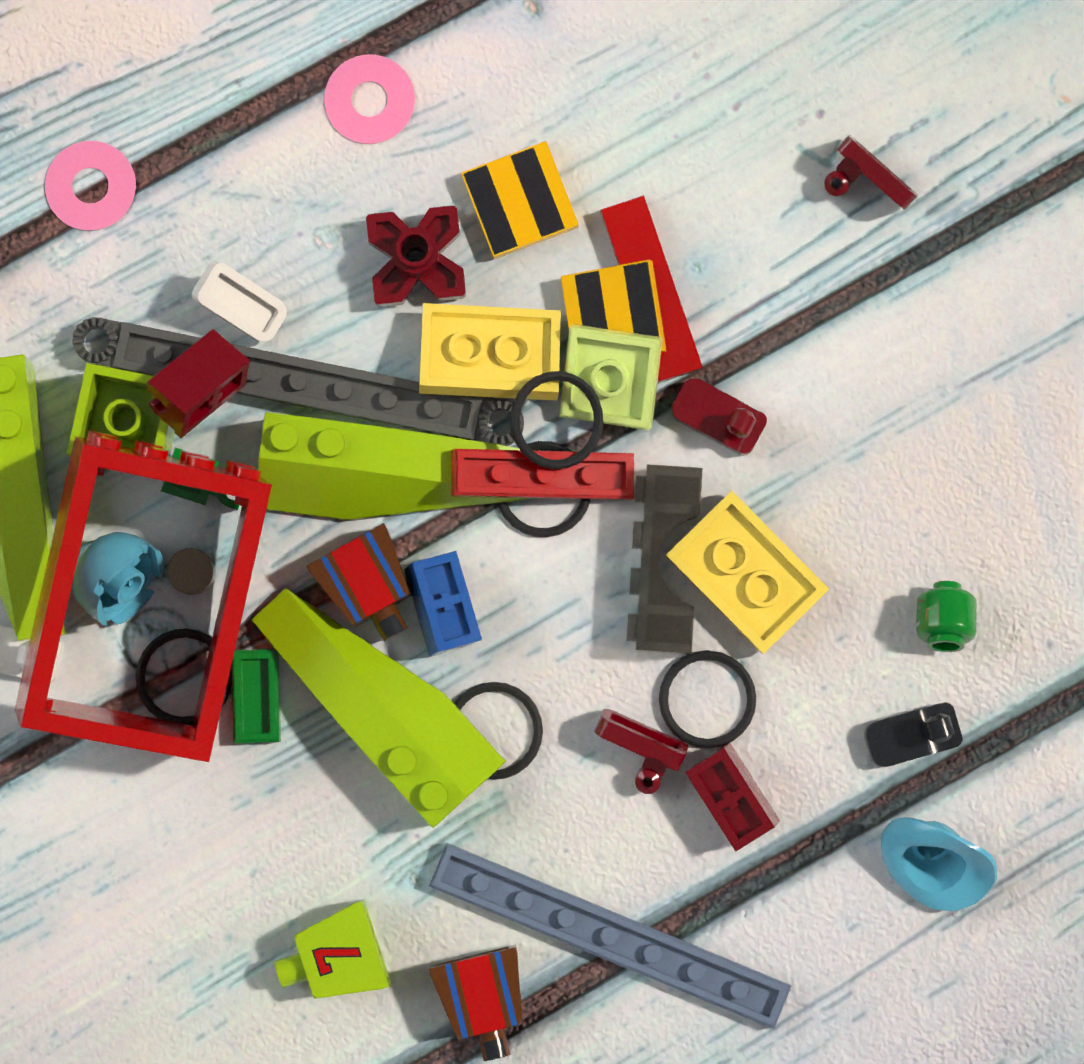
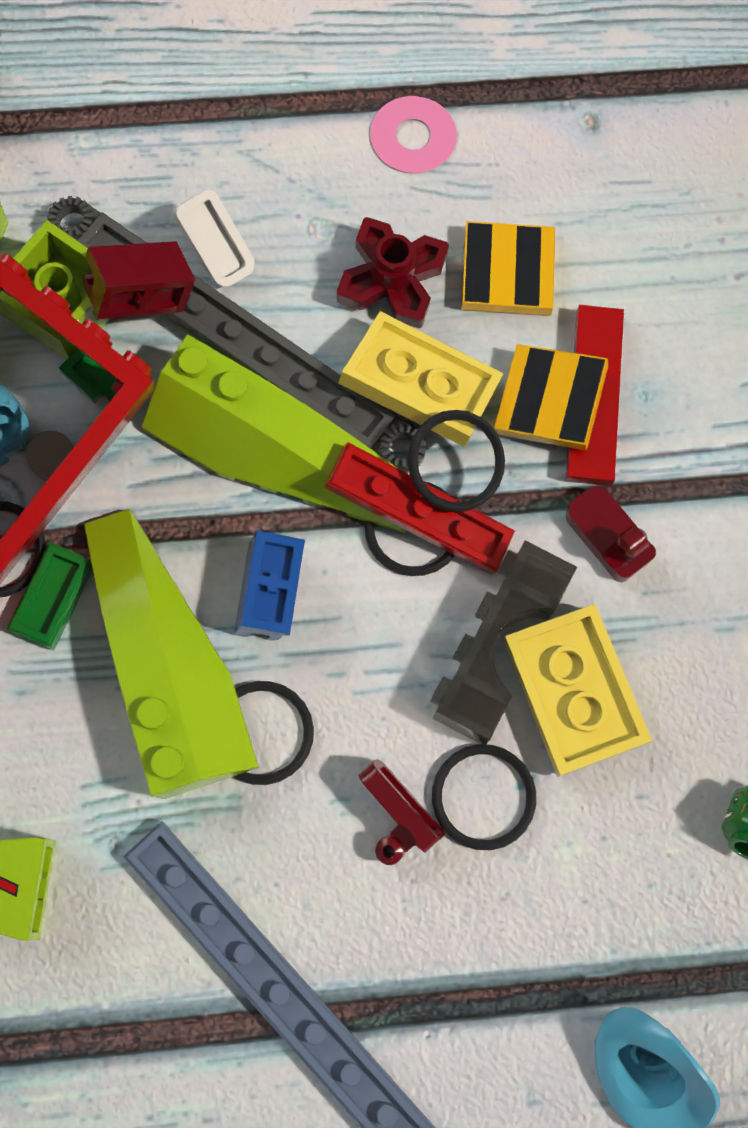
camera: 20 degrees right, 10 degrees down
(90, 215) = (118, 122): bright pink piece -> none
(366, 581) = (206, 532): torso -> none
(482, 997) = (118, 998): torso -> none
(619, 369) = (536, 449): yellowish green tile -> none
(732, 797) = (467, 907): dark red hinge -> none
(913, 735) = (676, 927): black piece -> none

